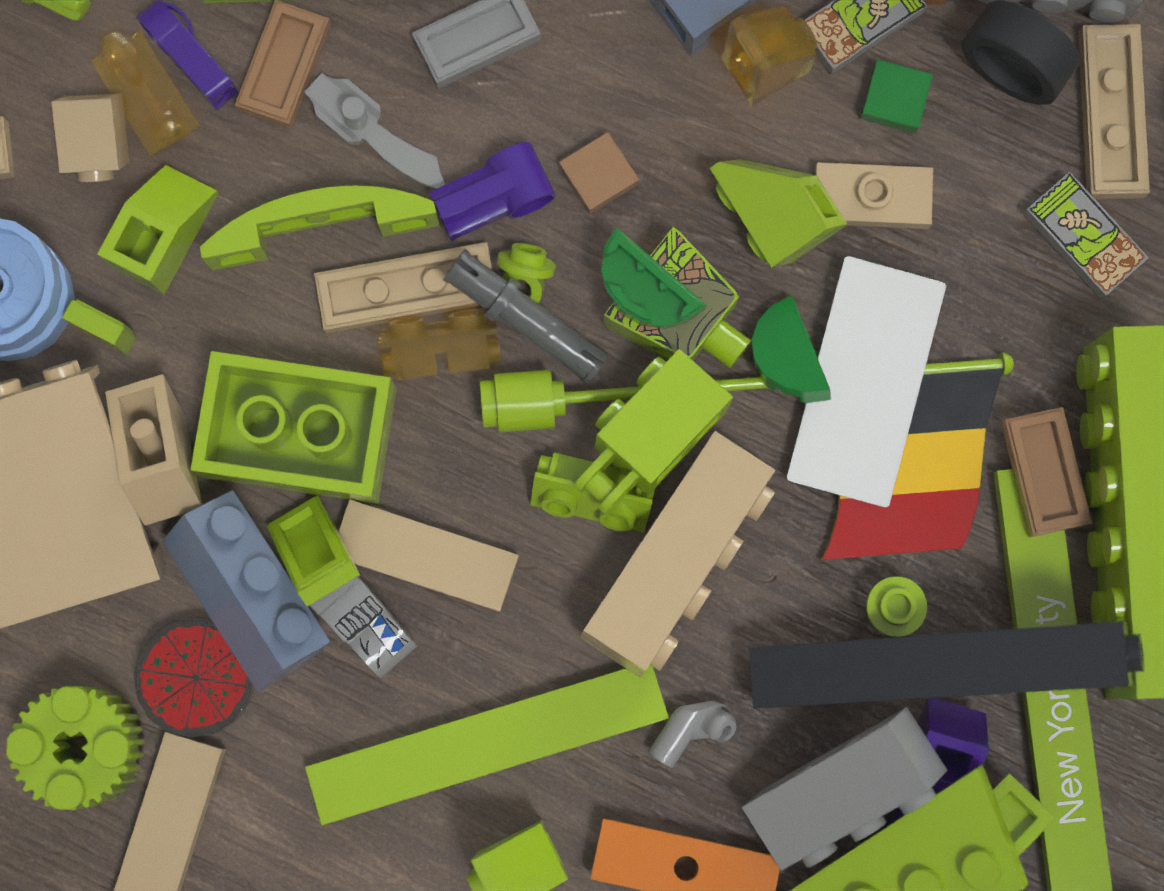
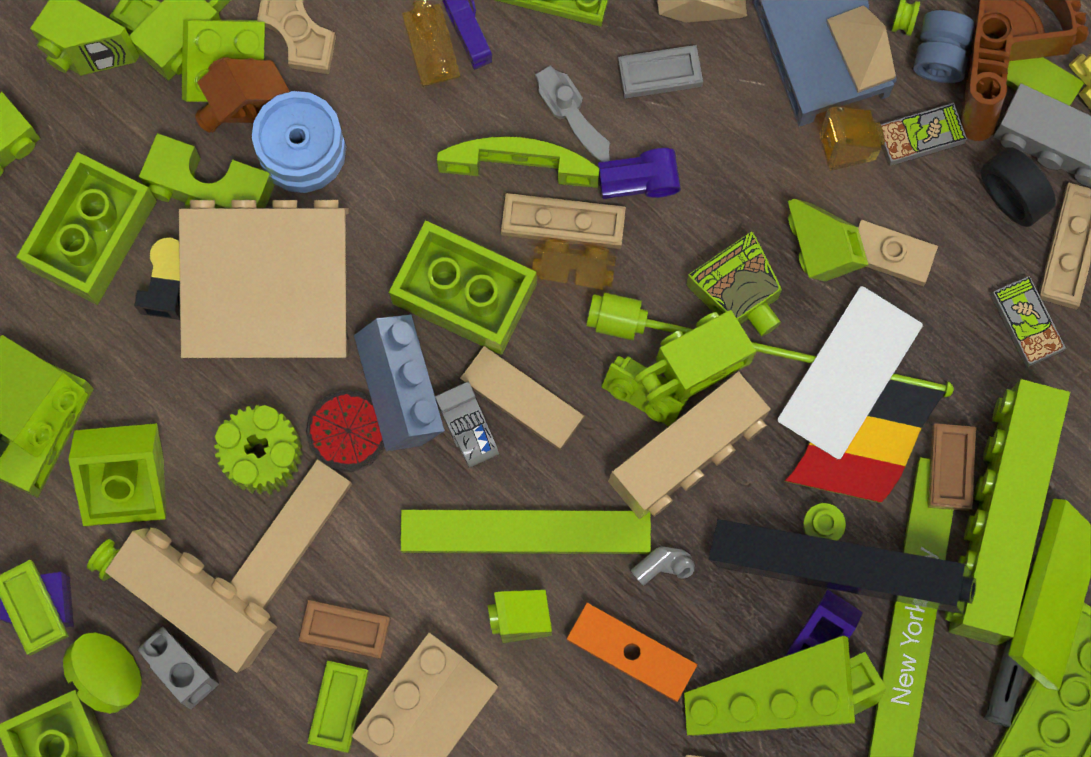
camera: 20 degrees right, 5 degrees down
(90, 135) = (388, 61): tan brick -> none
(100, 326) = (356, 185): lime tile -> none
(153, 450) = (367, 273): tan brick -> none
(157, 228) = (413, 134): lime slope -> none
(283, 64) = (527, 52): medium nougat tile -> none
(312, 551) = (450, 369): lime tile -> none
(521, 313) = (636, 261): dark grey pin -> none
(527, 264) = (648, 228): lime plate -> none
(598, 173) = (713, 184): medium nougat tile -> none
(643, 287) = (720, 265): green tile -> none
(786, 355) = (802, 339): green tile -> none
(846, 791) = (752, 629): light grey brick -> none
(896, 96) = (928, 192): green tile -> none

